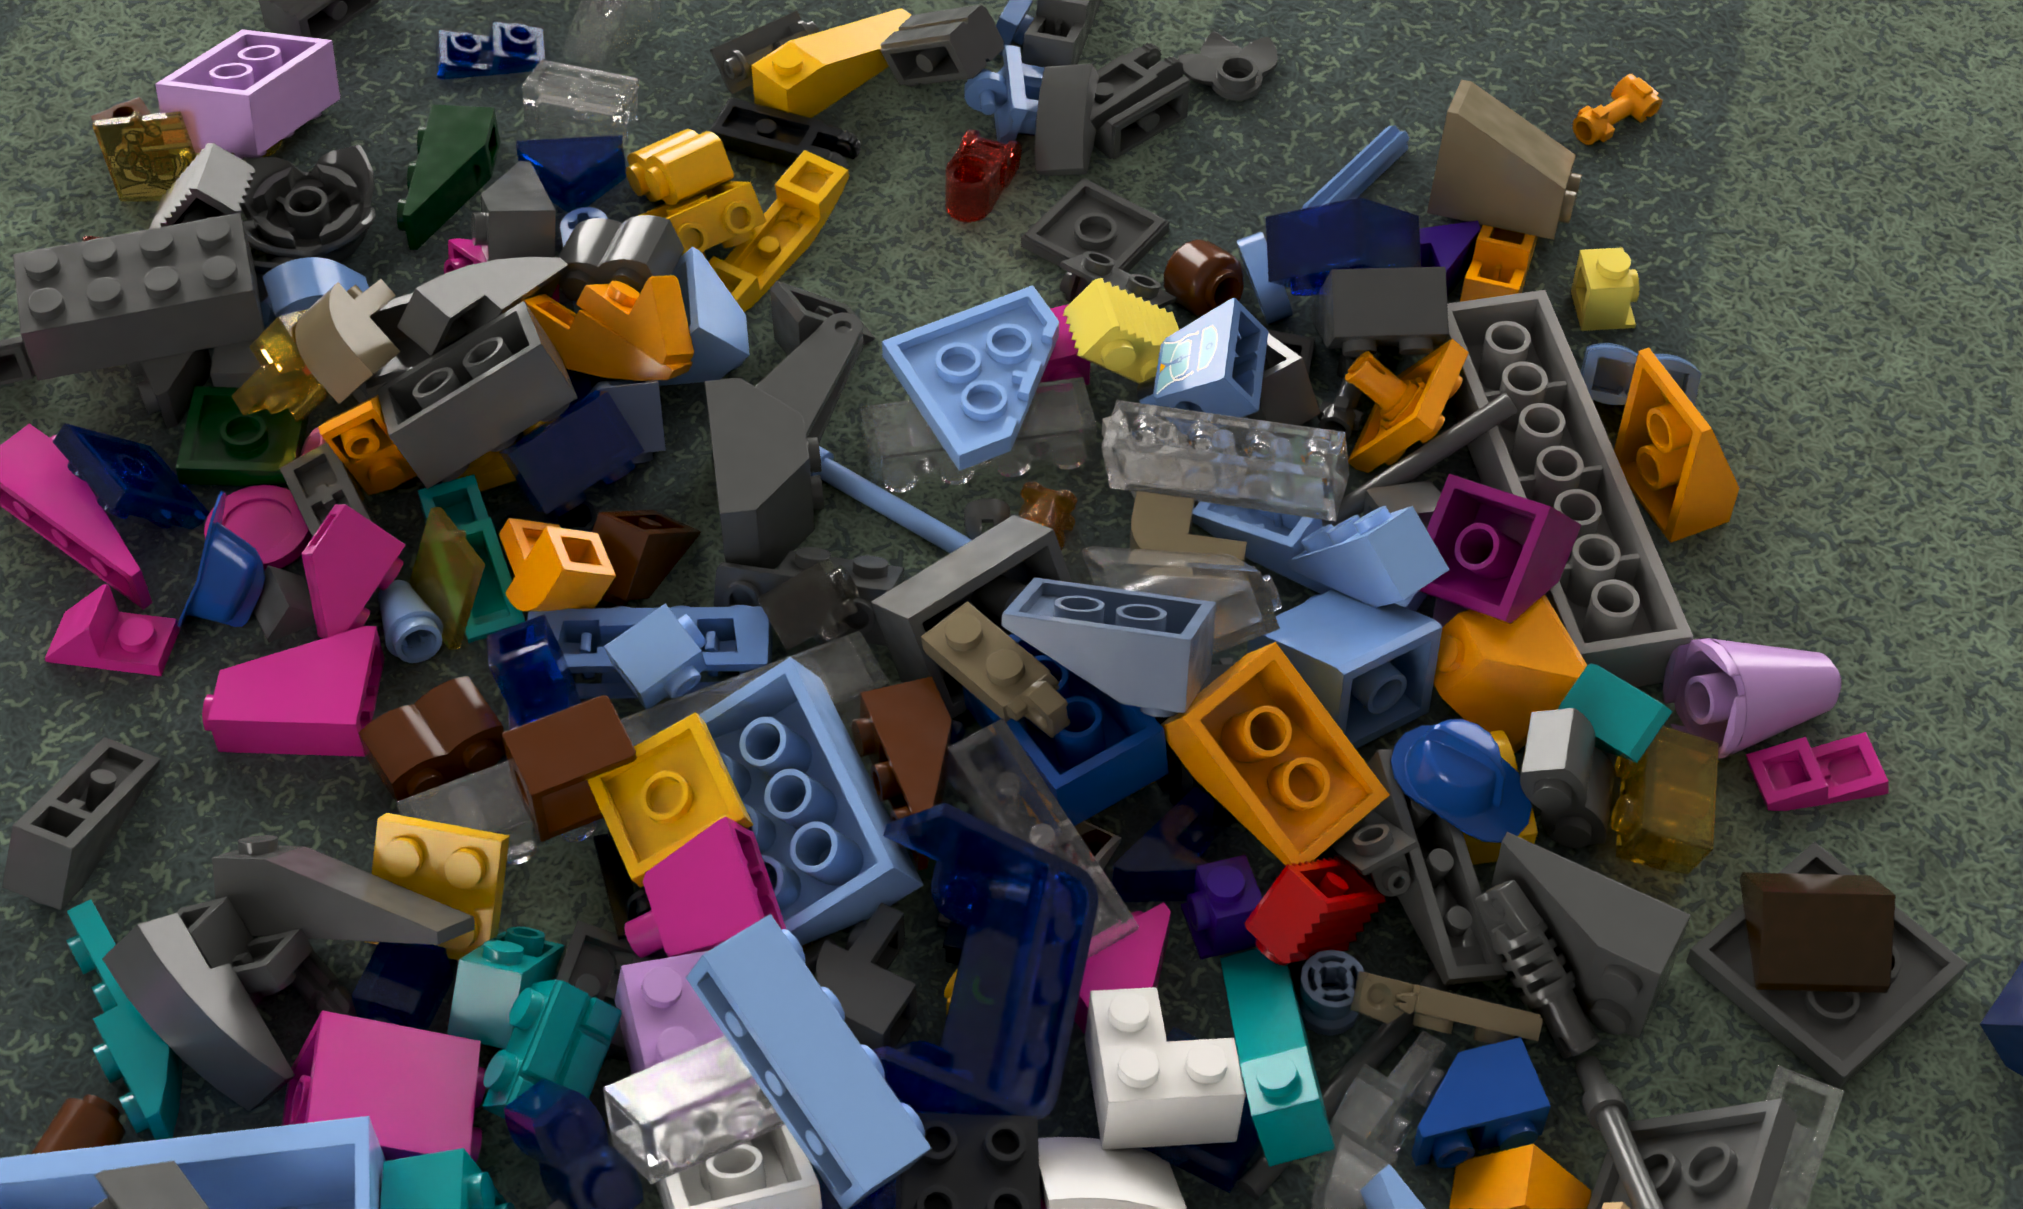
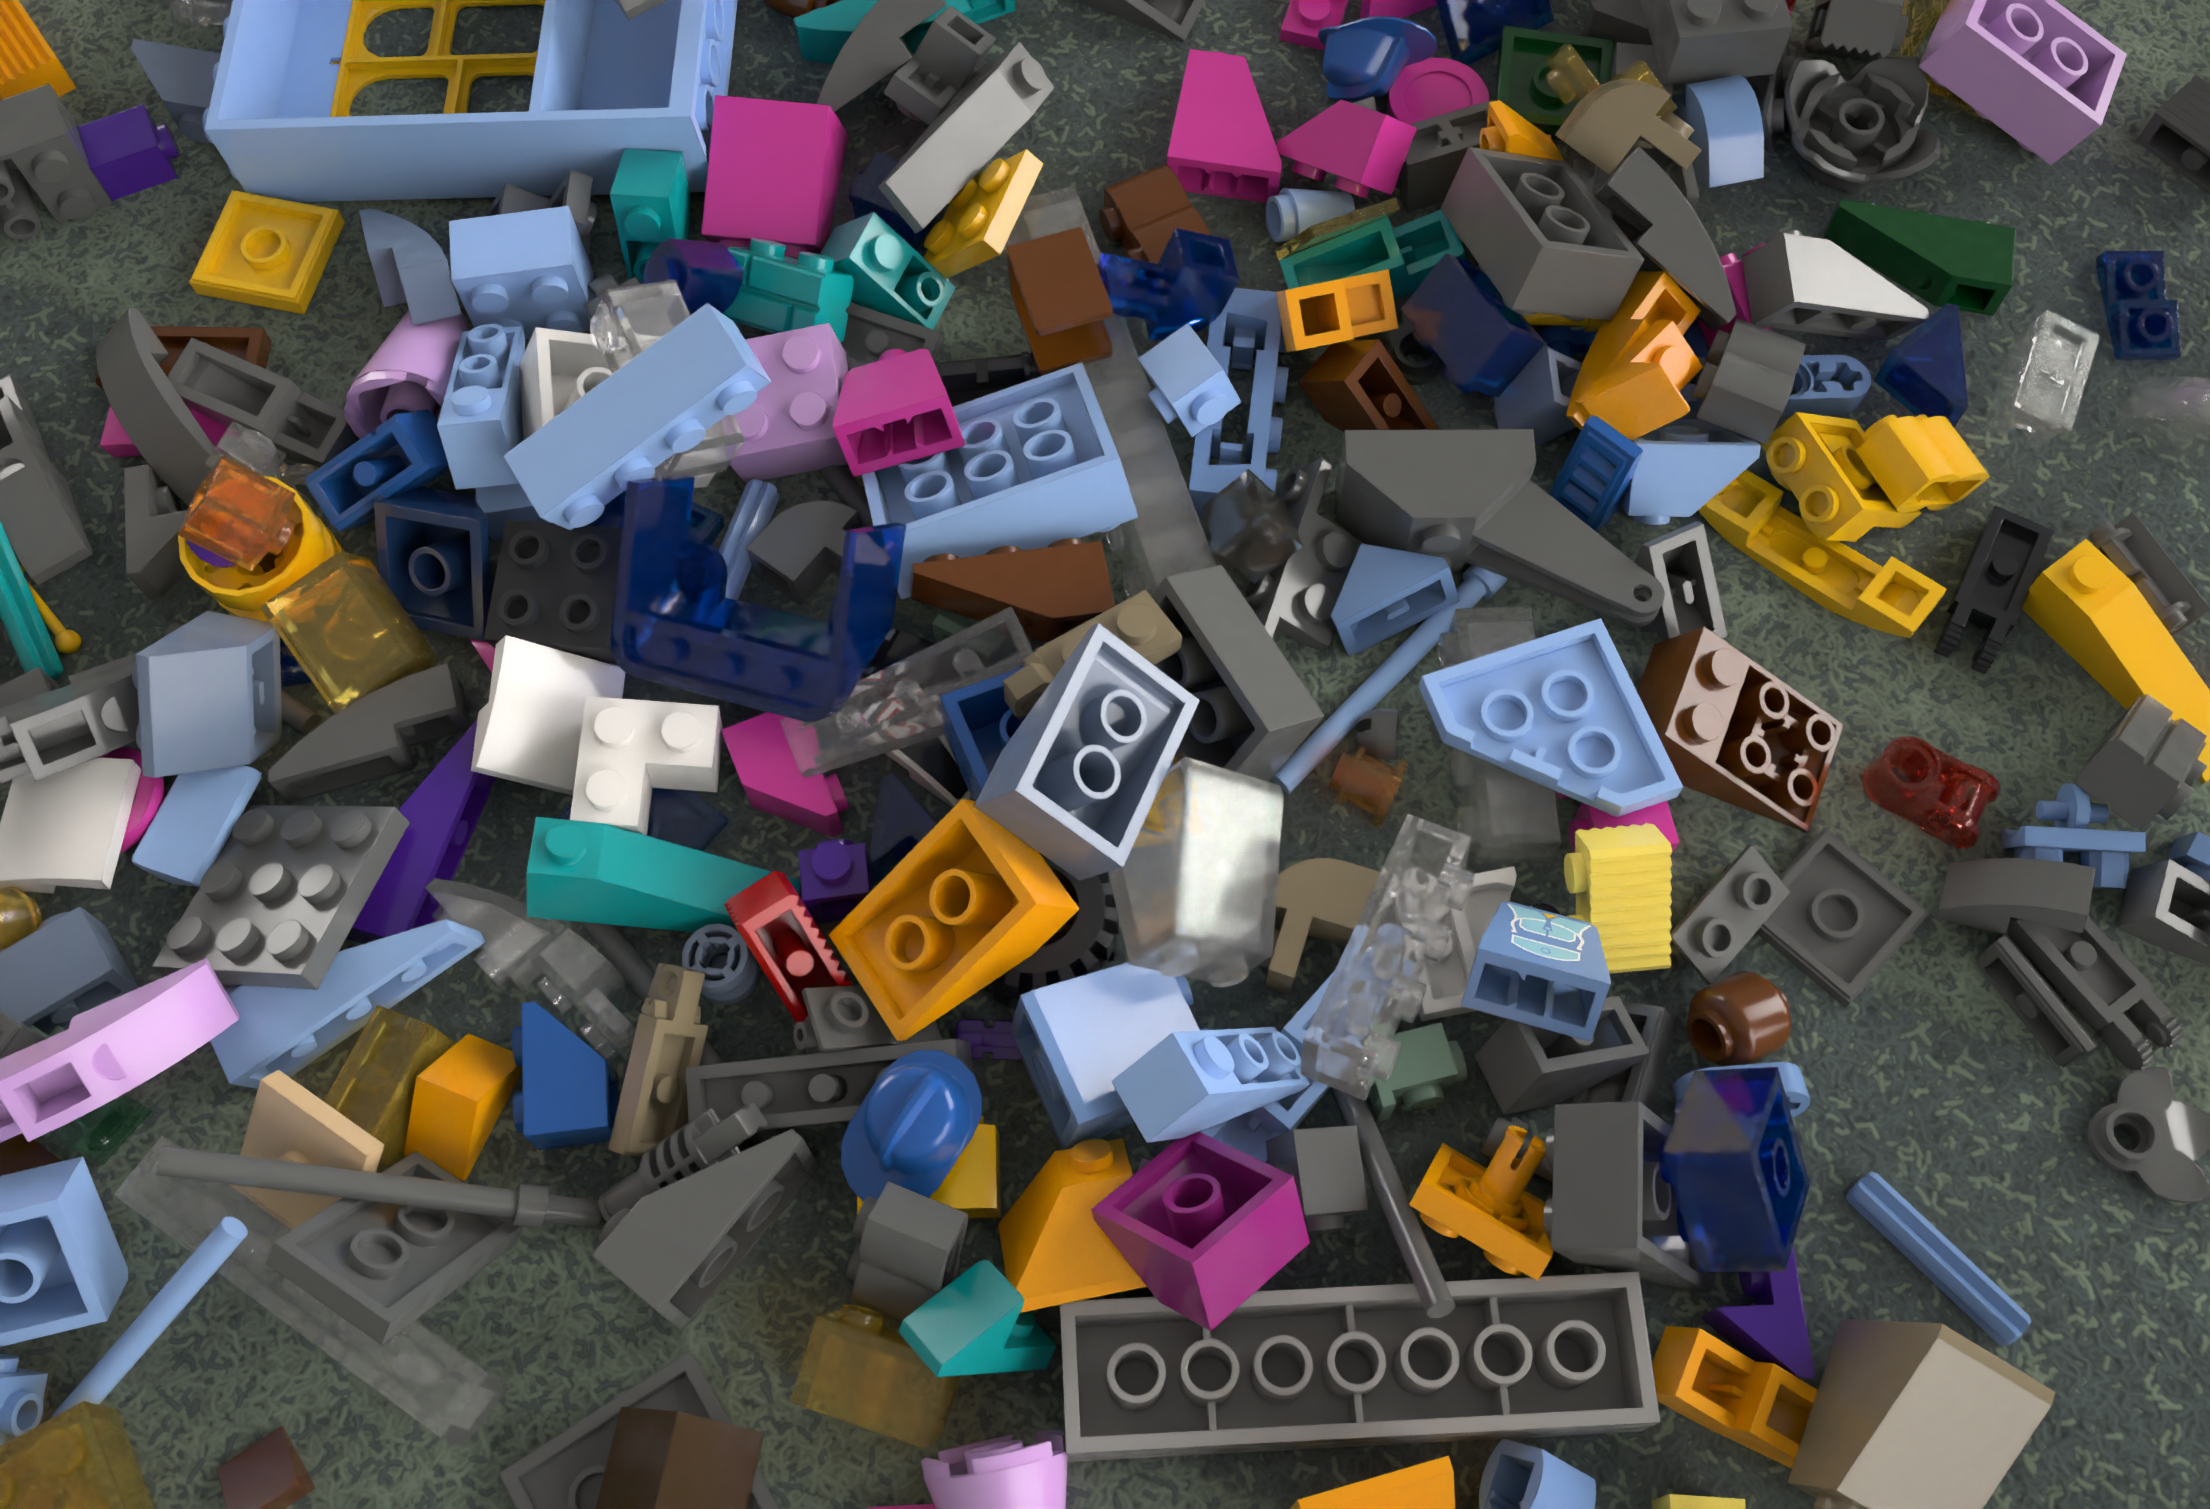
camera: 100 degrees right, 15 degrees up
(667, 795) = (1005, 375): yellow plate -> none
(723, 362) = (1588, 481): none -> blue slope
(848, 518) = (1388, 594): none -> medium blue slope
(938, 279) = (1738, 728): none -> reddish brown slope

